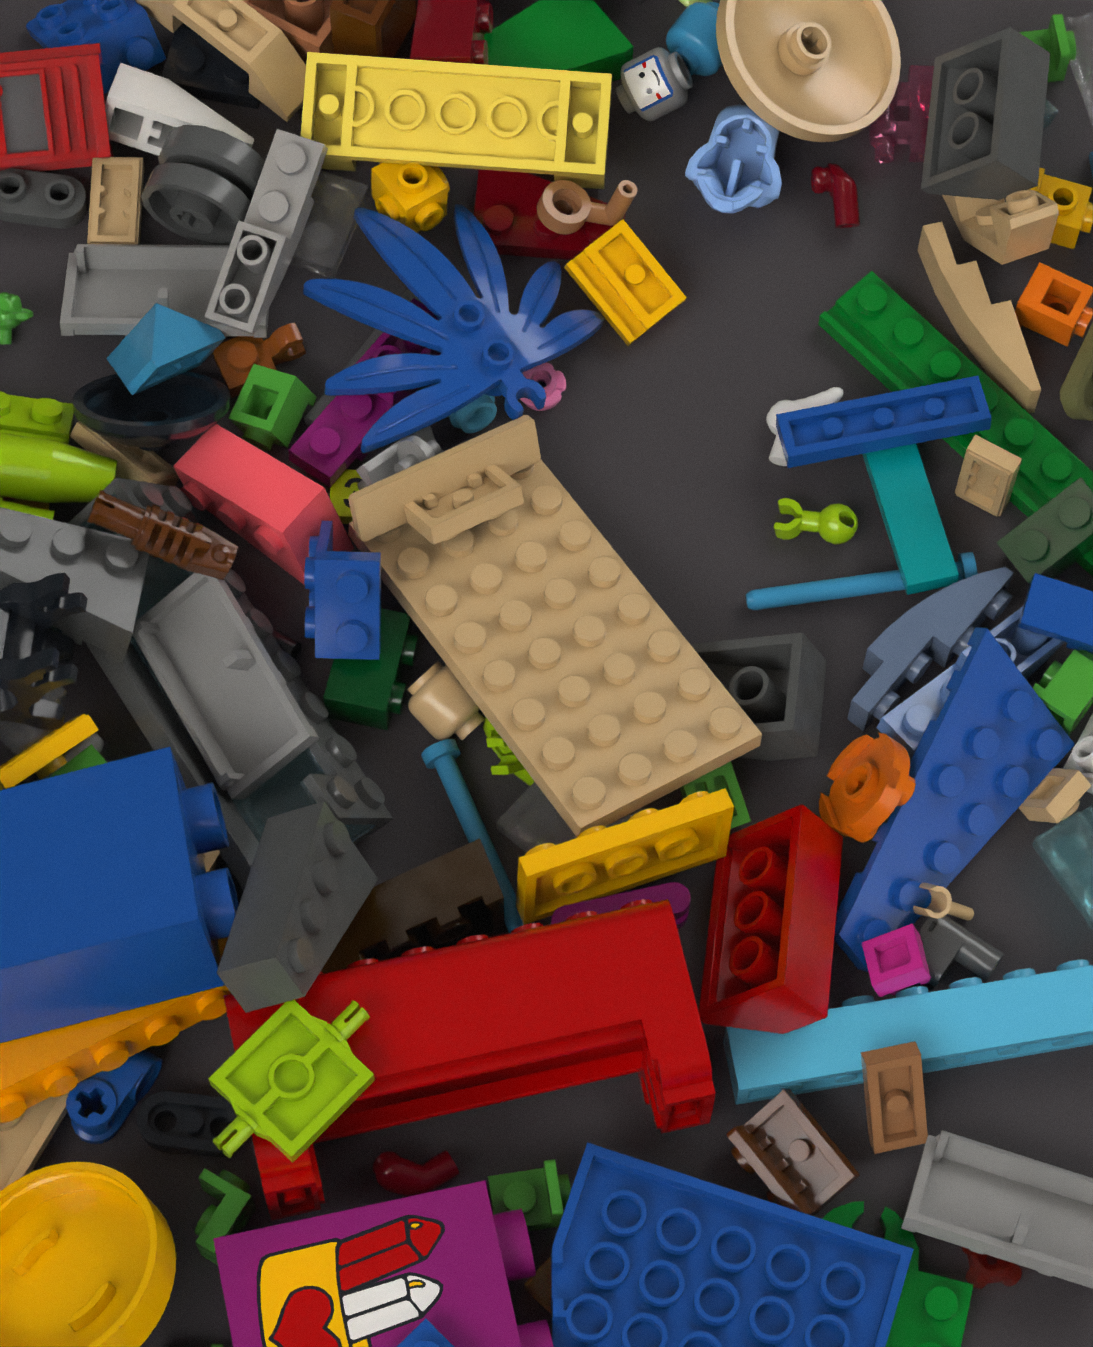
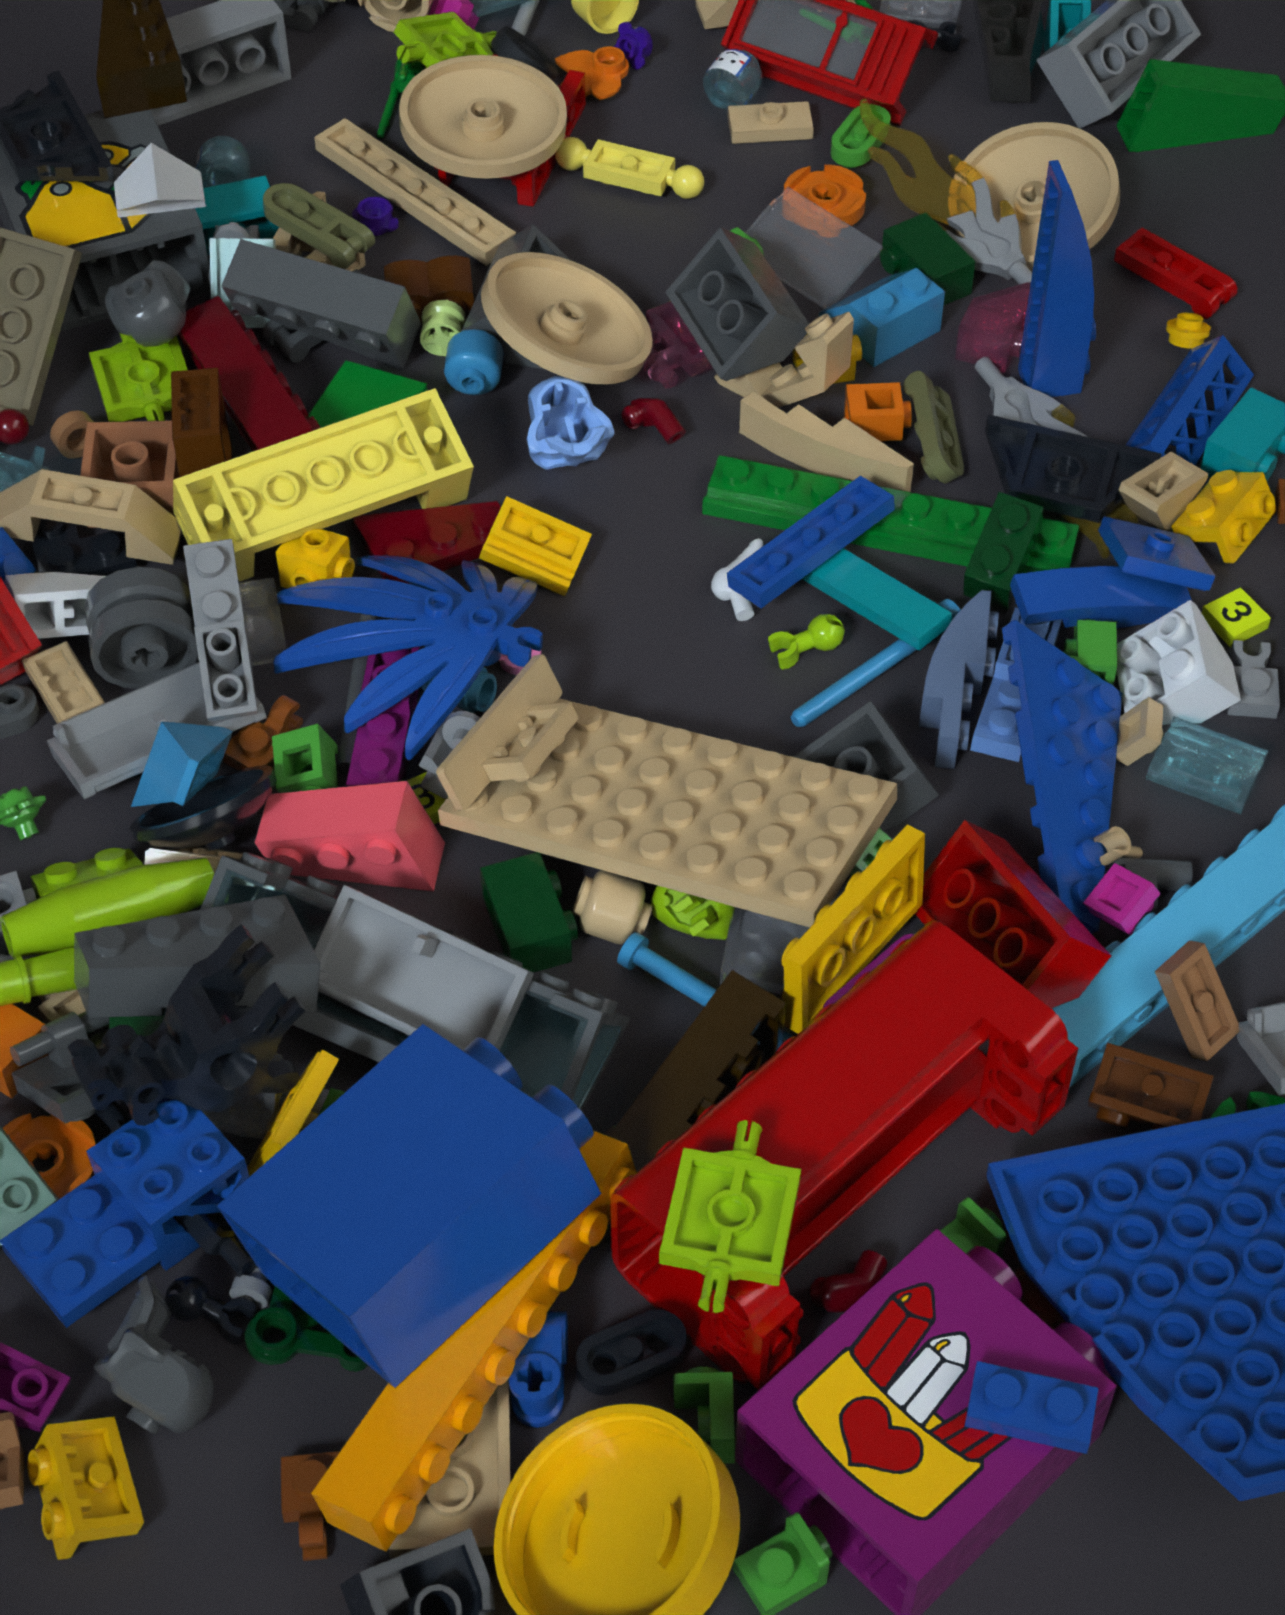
camera: 30 degrees left, 15 degrees down
(166, 536) = (297, 875): reddish brown hinge -> none
(293, 907) = (623, 1088): dark grey wedge -> none
(342, 599) = (477, 857): blue bracket -> none
(578, 208) = (456, 511): medium nougat plate -> none
(654, 84) = (465, 401): head -> none
(867, 786) = (1019, 779): orange plate -> none
(987, 476) = (920, 537): tan plate -> none

